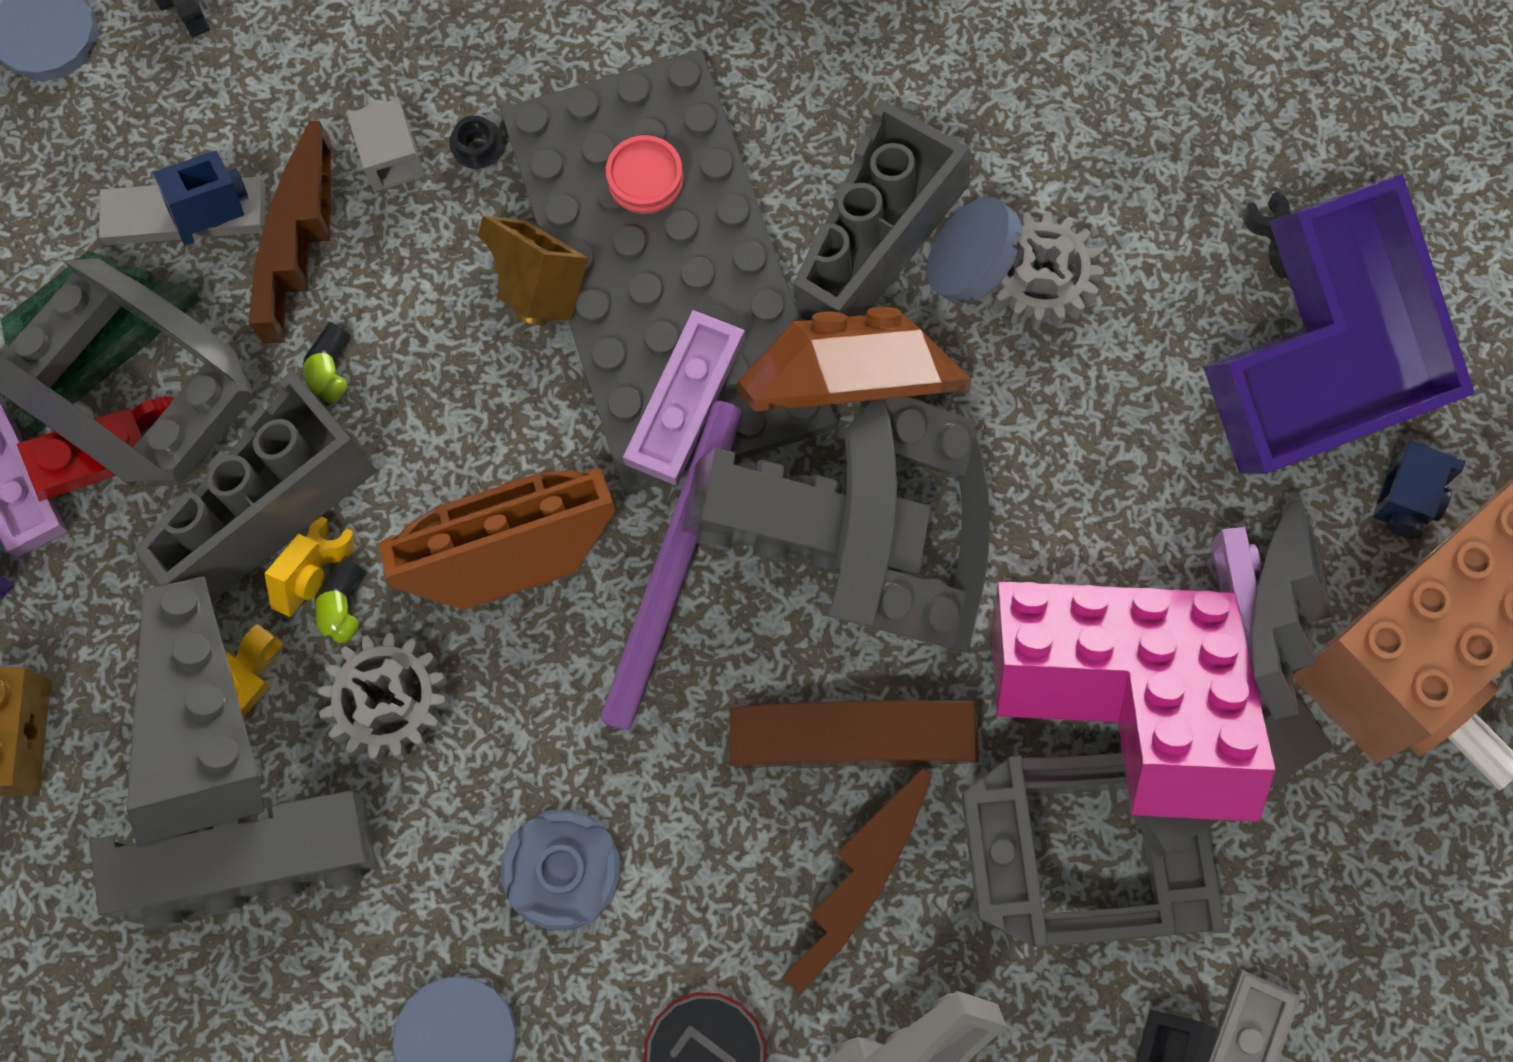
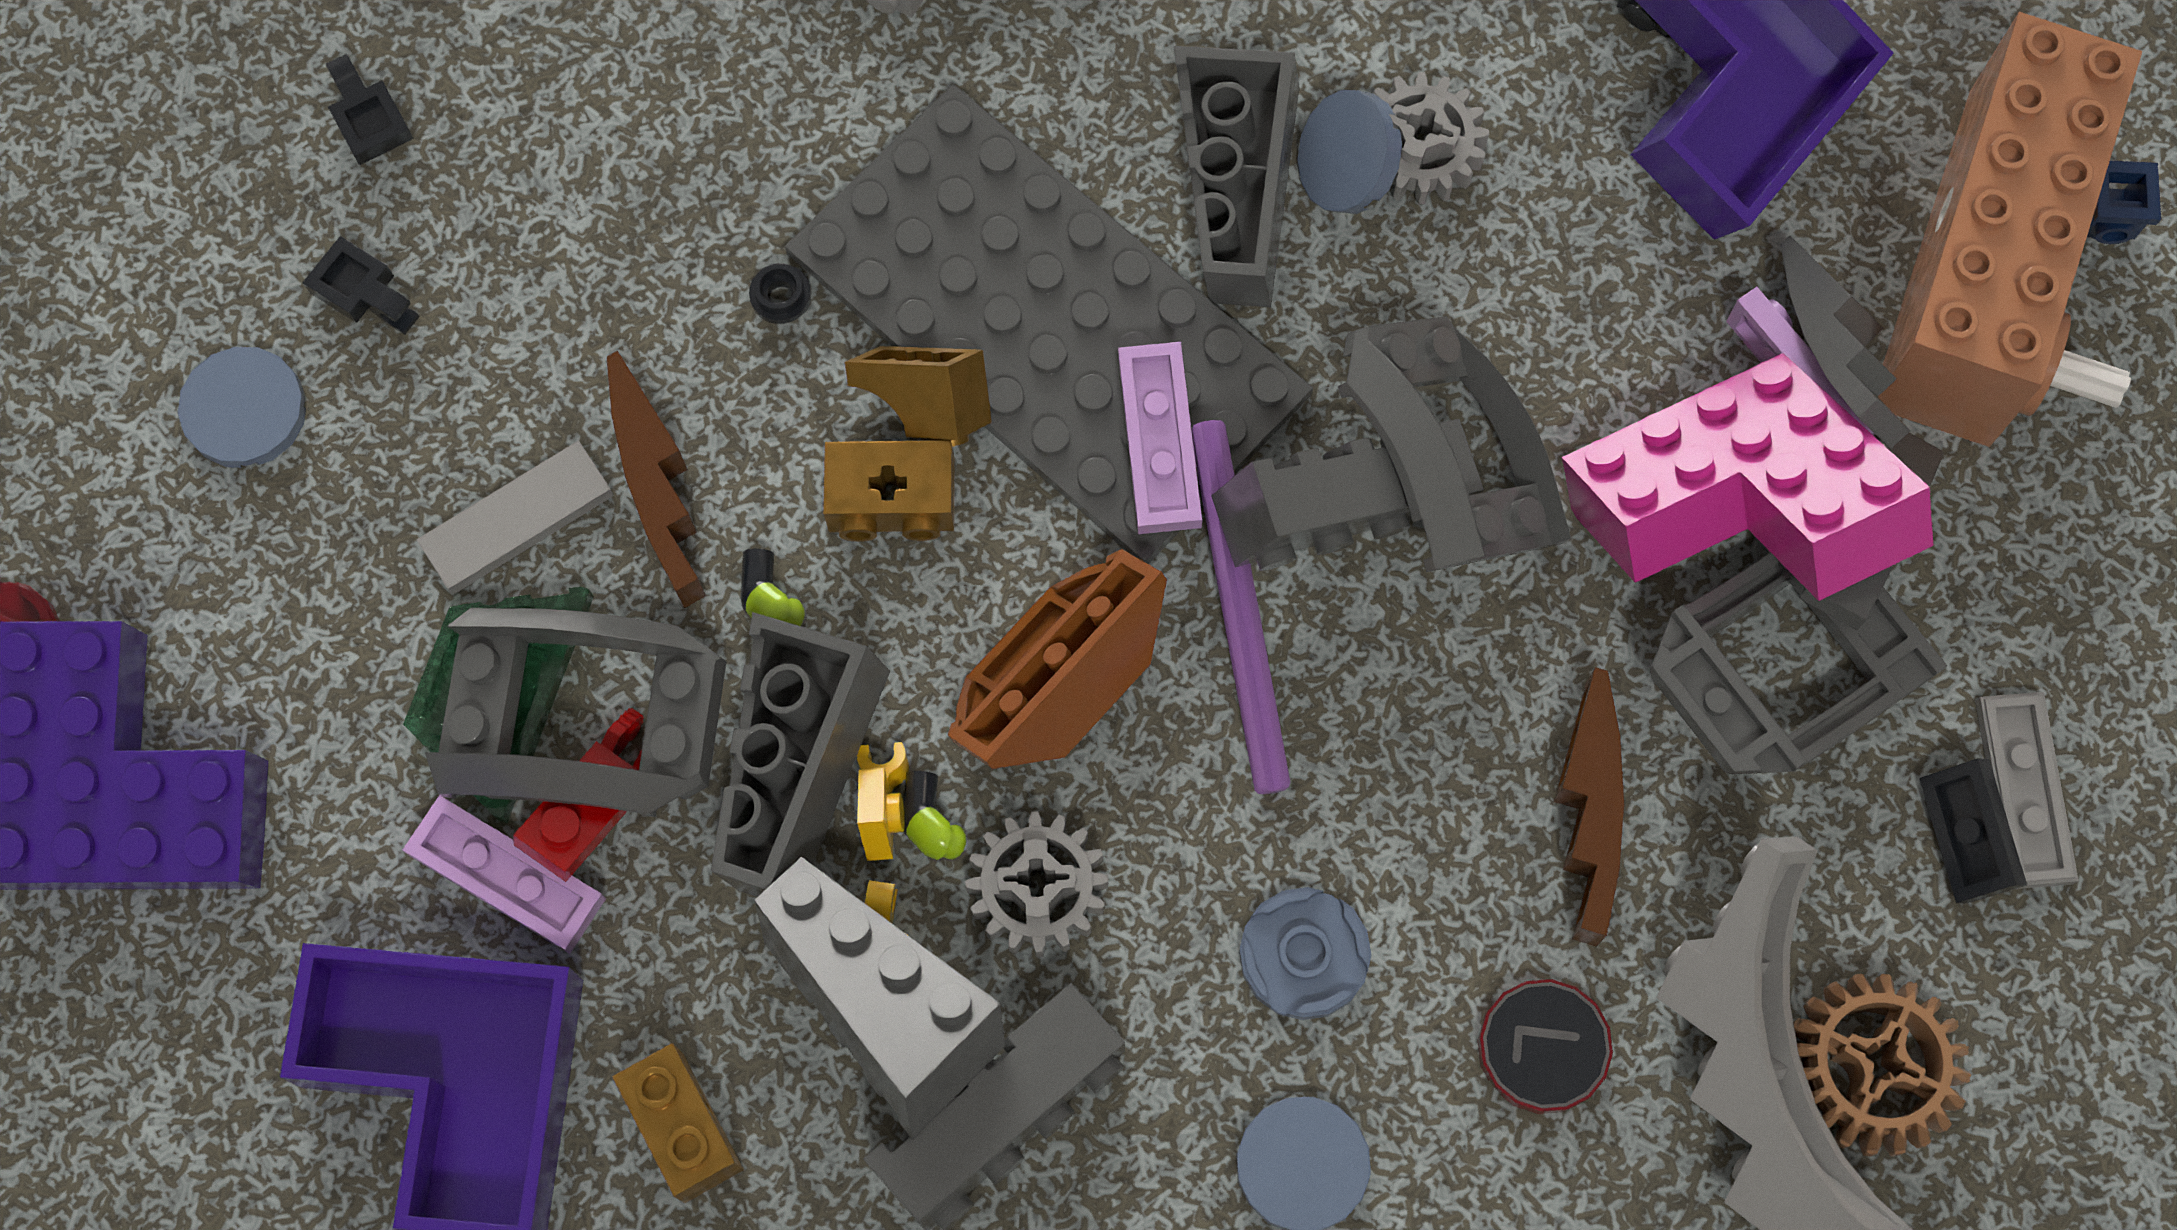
camera: 30 degrees left, 0 degrees up
(200, 194) = (540, 489): dark blue brick -> none
(385, 144) = (692, 340): light grey brick -> none
(446, 307) = (858, 477): none -> pearl gold brick
(644, 174) = (981, 238): coral piece -> none
(849, 361) = (1302, 323): dark orange wedge -> none
(854, 734) = (1507, 674): reddish brown slope -> none
(1416, 489) = (1885, 171): dark blue brick -> none

